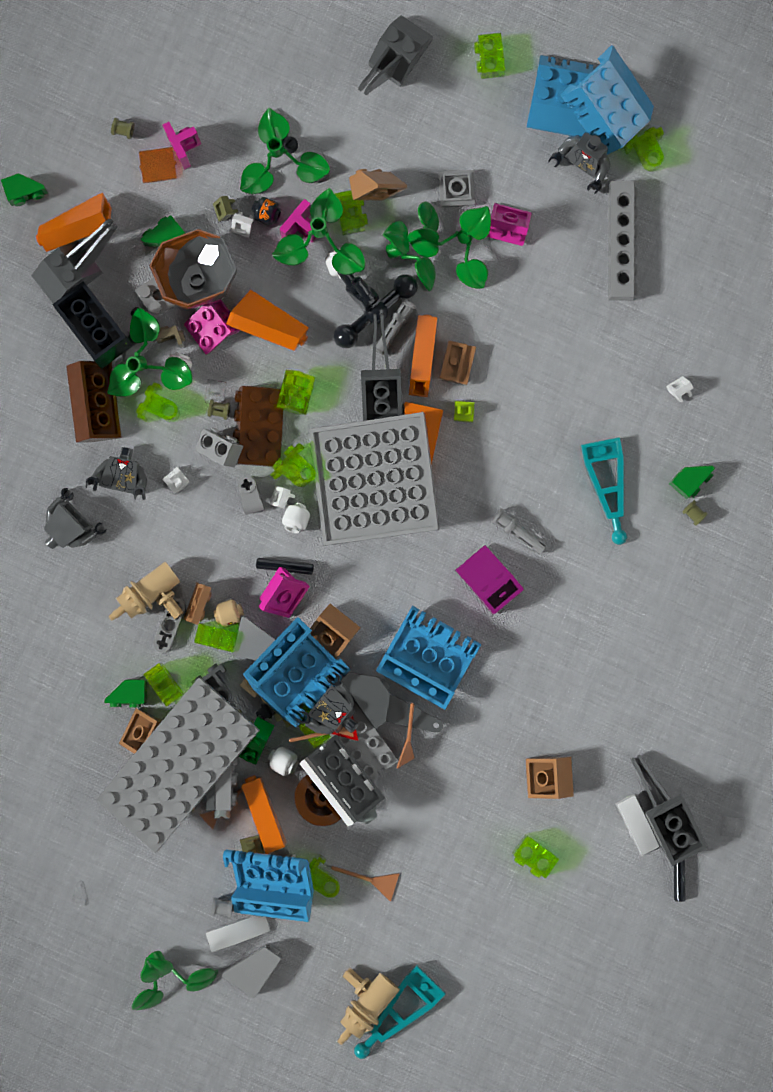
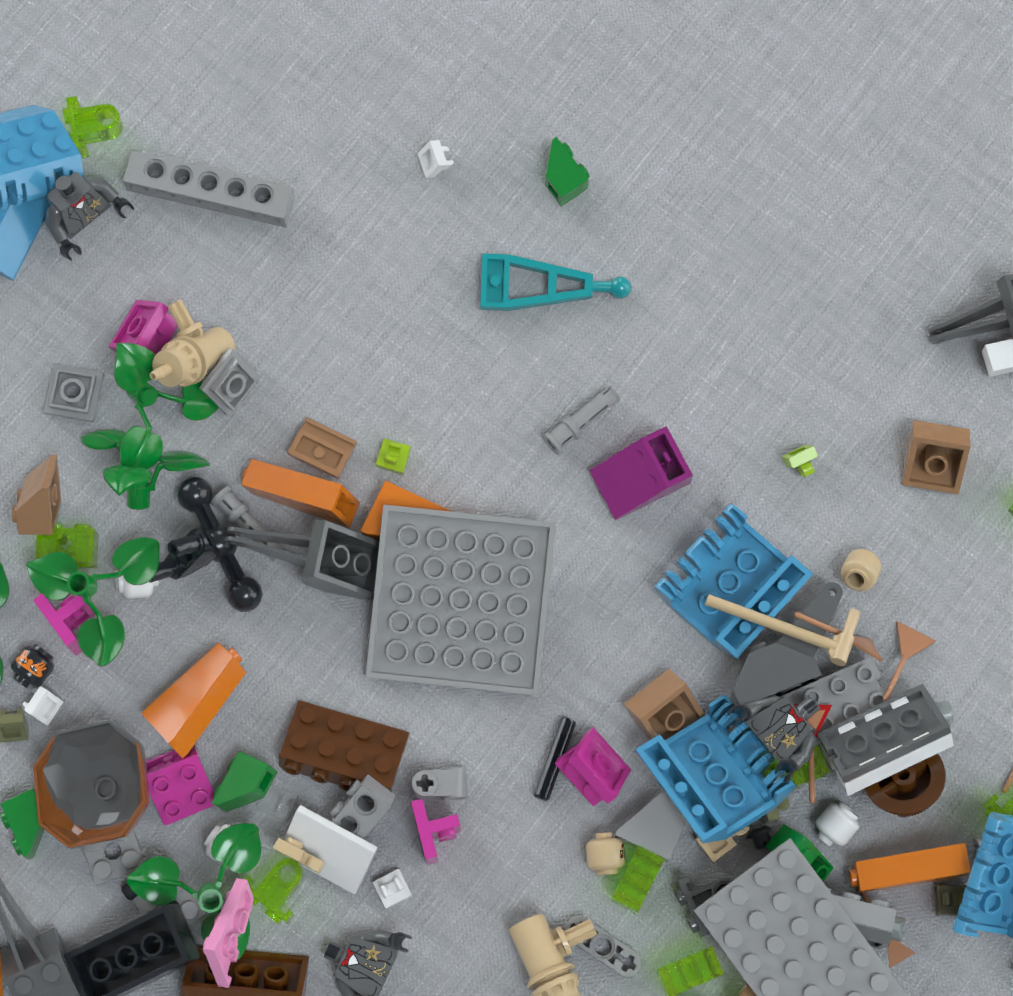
camera: 75 degrees left, 10 degrees down
(124, 380) = (222, 942): none -> bright pink wing
(170, 333) = (174, 844): dark tan bracket -> none
(183, 410) = (293, 849): none -> tan plate
(189, 432) = (343, 852): none -> white tile
(195, 610) = (581, 896): medium nougat plate -> none
(215, 405) = (303, 791): olive bush -> none
(215, 493) = (442, 828): none -> dark pink bracket
(222, 368) = (244, 783): none -> green slope
(280, 497) = (454, 741): white tile -> none
(293, 465) = (413, 711): clear neon green pin -> none
(296, 392) = (307, 682): clear neon green brick -> none
(296, 518) = (489, 725): white head -> none
(398, 737) = (838, 647): none -> tan bar
(417, 786) = (910, 644): none -> nougat piece
(457, 742) = (861, 570): none -> tan head
(493, 257) = (191, 353): none -> tan piece
(495, 286) = (217, 383): none -> light grey piece
(526, 685) = (801, 459): none -> lime tile
(694, 512) = (610, 179): olive bush -> none

